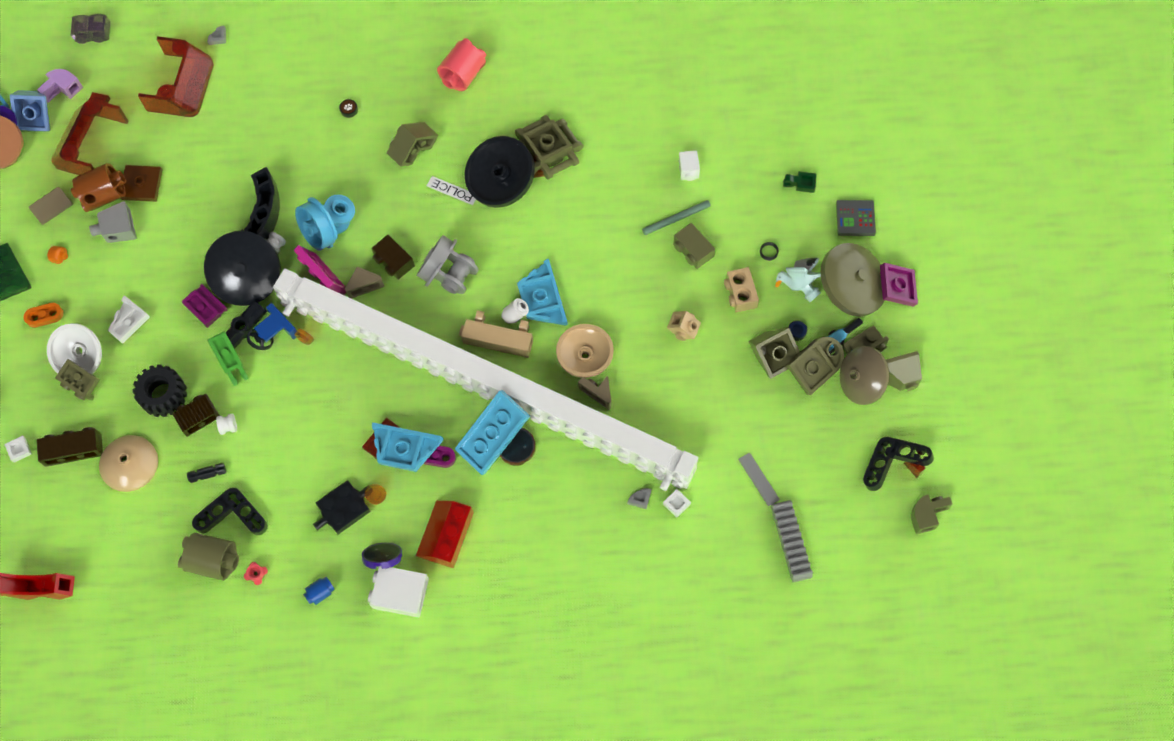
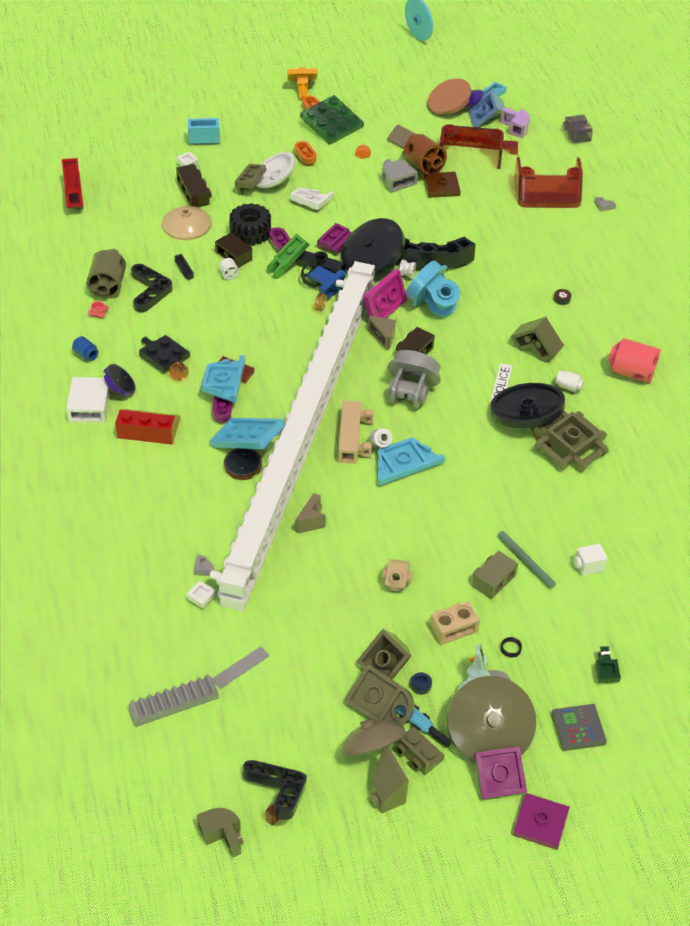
camera: 75 degrees right, 20 degrees down
(192, 363) = (278, 237): none -> magenta plate
(470, 129) = (569, 381): none -> white brick
(584, 340) = (349, 494): tan dish -> none
(939, 266) = (541, 821): none -> magenta plate

